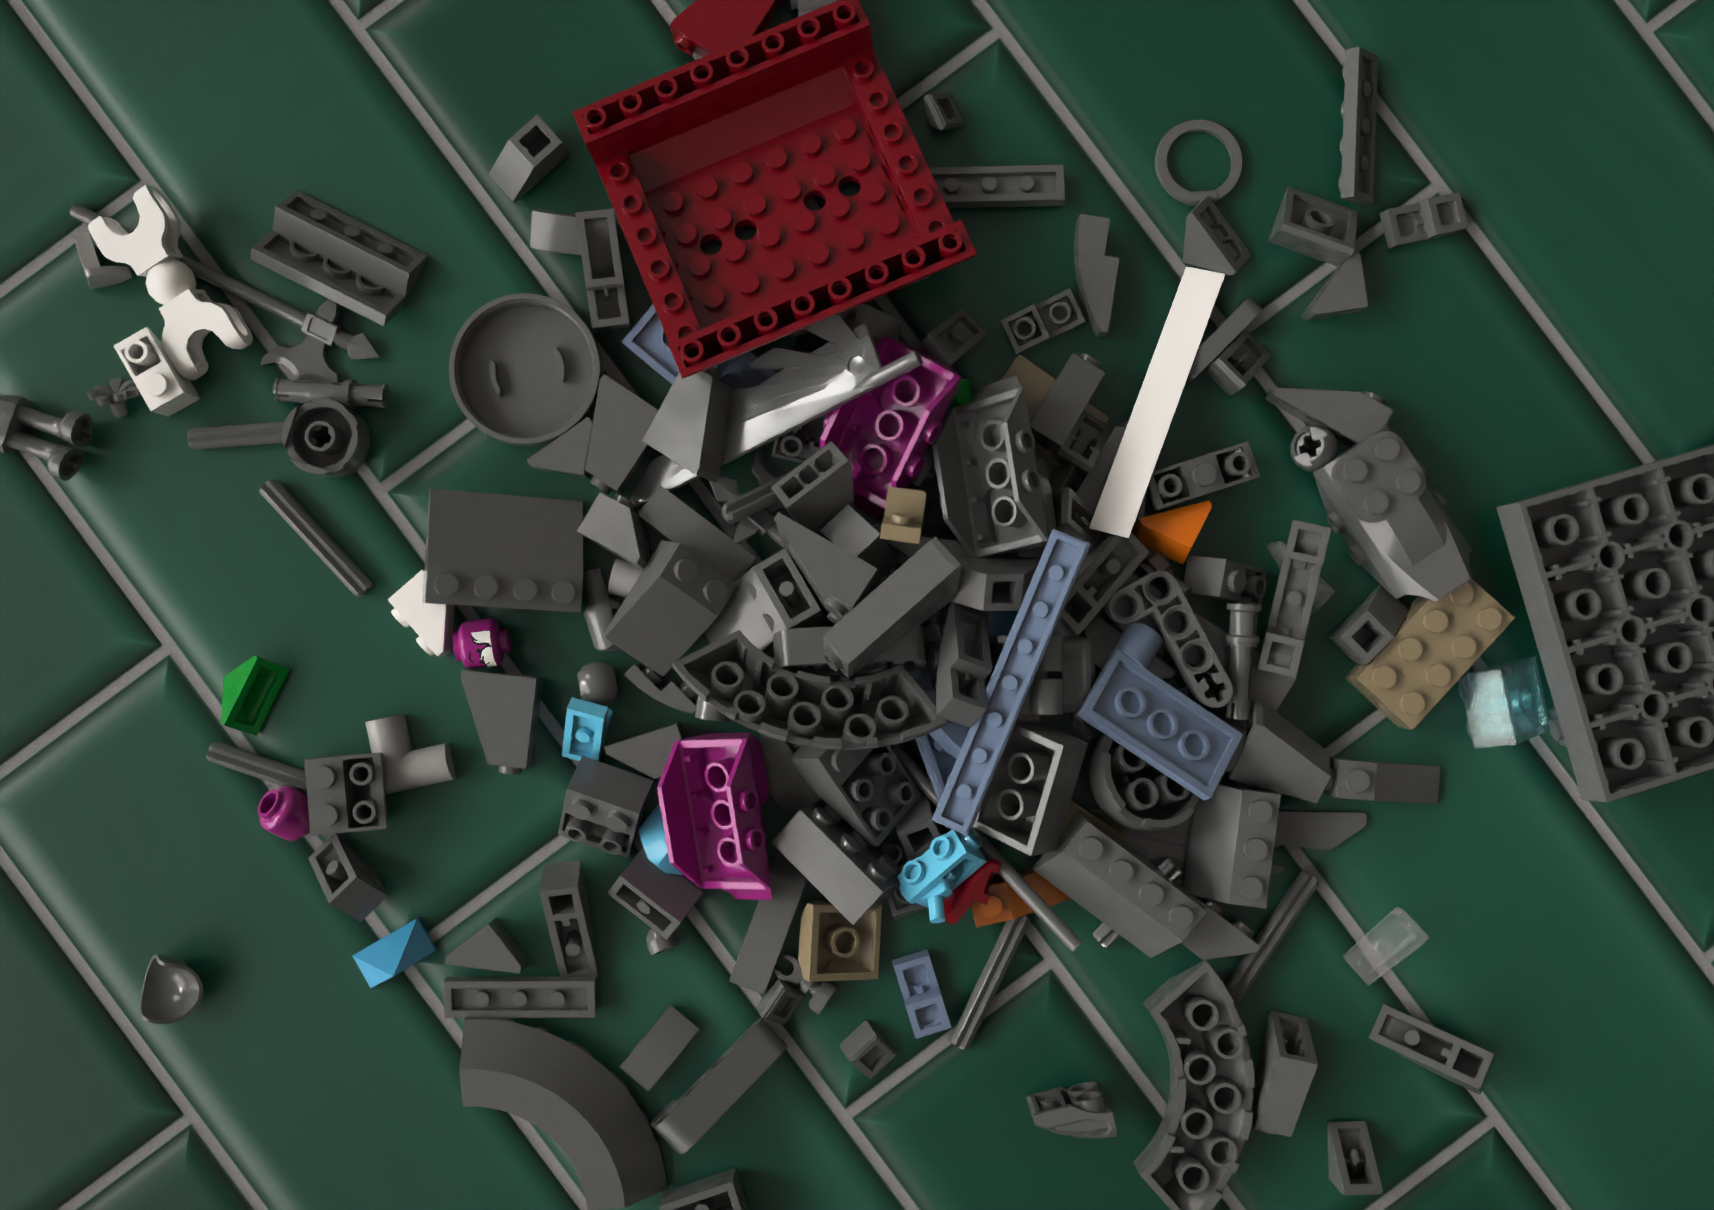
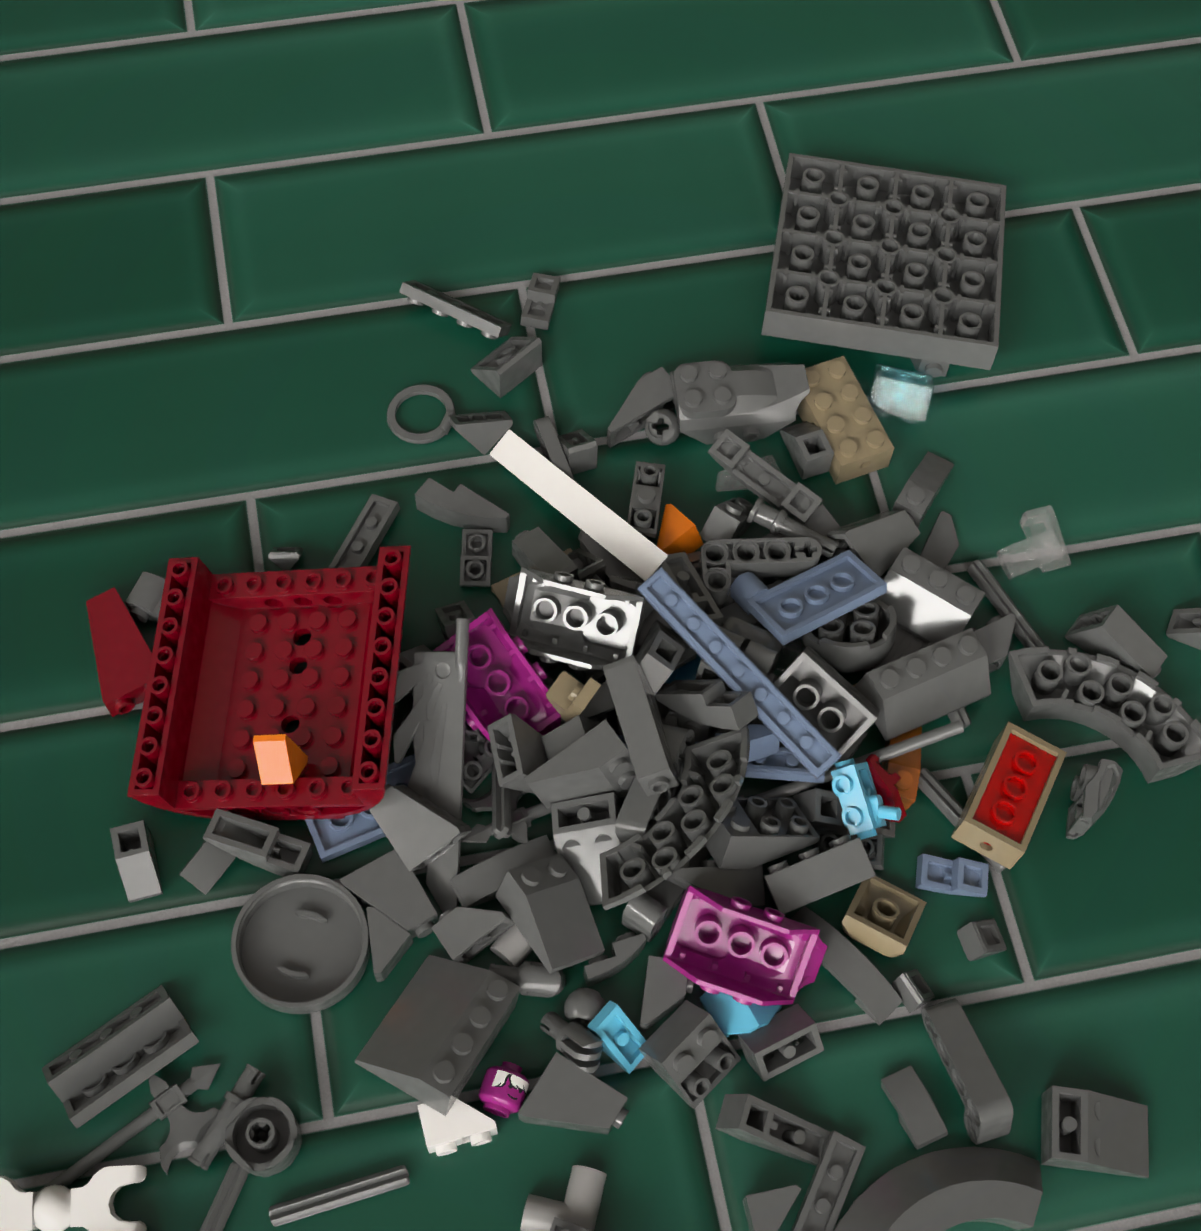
camera: 65 degrees left, 25 degrees down
(555, 689) = (574, 1041): none -> dark grey arm
(658, 944) = (822, 1063): dark grey hinge -> none
(679, 247) = (278, 759): none -> slope
(821, 991) = (919, 951): dark grey piece -> none
(1032, 1024) = (1009, 795): none -> brick
(1342, 293) = (562, 366): dark grey slope -> none
(1353, 937) = (1030, 554): none -> clear slope
(1433, 1049) = (1136, 537): dark grey slope -> none

